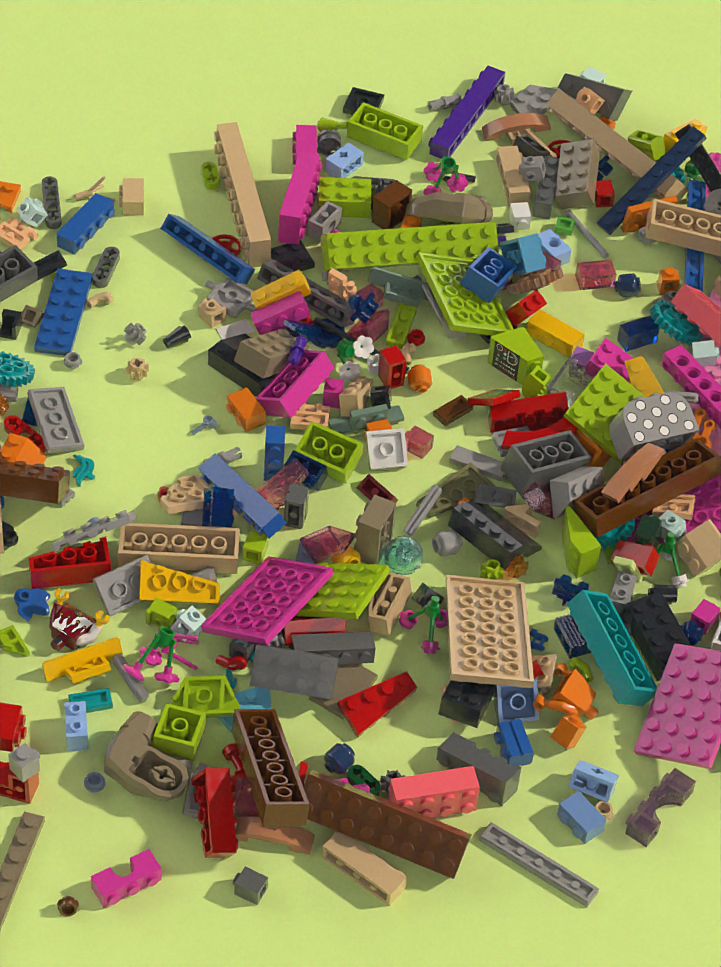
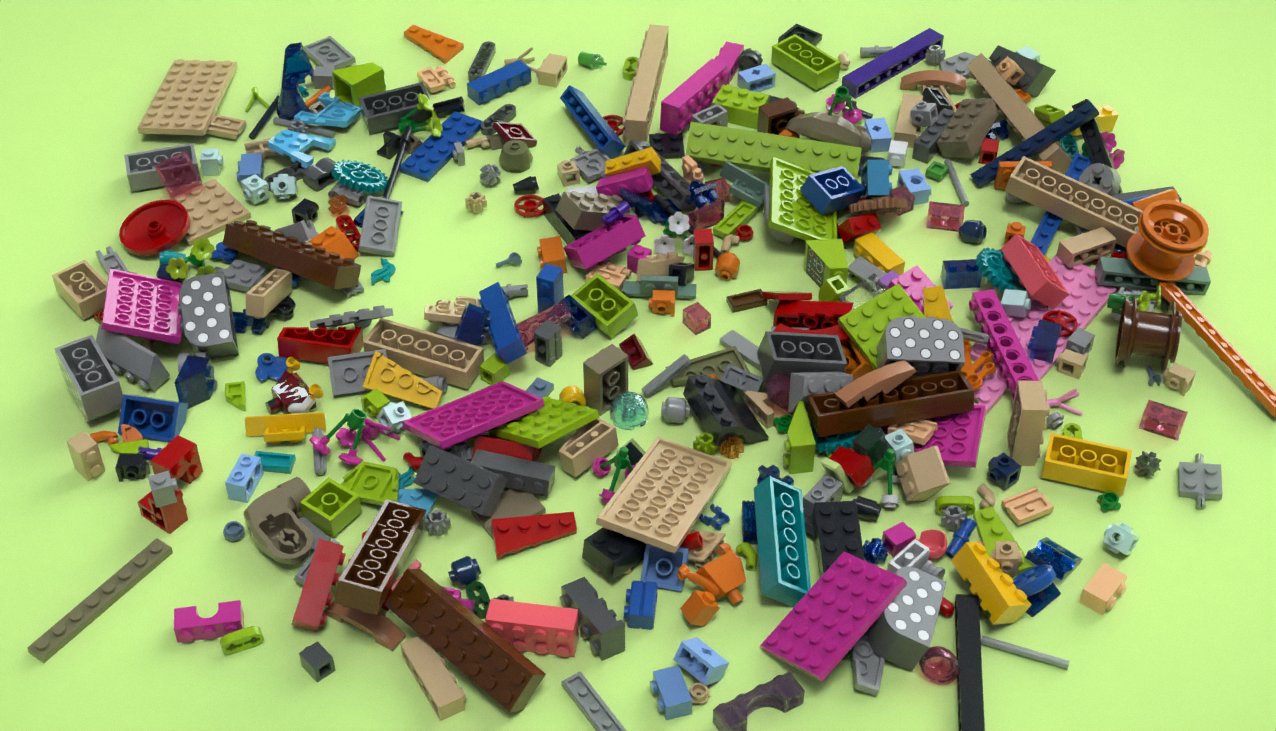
camera: 25 degrees right, 5 degrees down
(17, 296) = (433, 124): none -> plant
(27, 316) = (404, 142): none -> black bar
(32, 212) = (458, 64): light aqua brick -> none
(67, 906) = (143, 630): reddish brown plate -> none
(72, 360) = (425, 184): light grey plate -> none
(89, 317) = (458, 154): none -> light grey plate
(118, 291) = (496, 141): none -> dark tan slope
(135, 281) = (514, 131): none -> tile
(149, 306) = (515, 156): none -> olive cone
(167, 175) = (591, 60): none -> piece
(168, 886) = (241, 640): none -> lime beam
(191, 359) = (529, 206): none -> red wheel
(288, 718) = (437, 523): none -> light grey gear
(325, 123) = (759, 47): lime cone -> none
(327, 543) = (555, 378): clear pink slope -> none
(386, 449) = (661, 316): white plate -> none
(416, 117) = (845, 62): none -> tan arm
(494, 196) = (879, 134): none -> light blue brick
(550, 530) = (783, 423): none -> green plate
(554, 352) = (864, 269): none -> light grey hinge

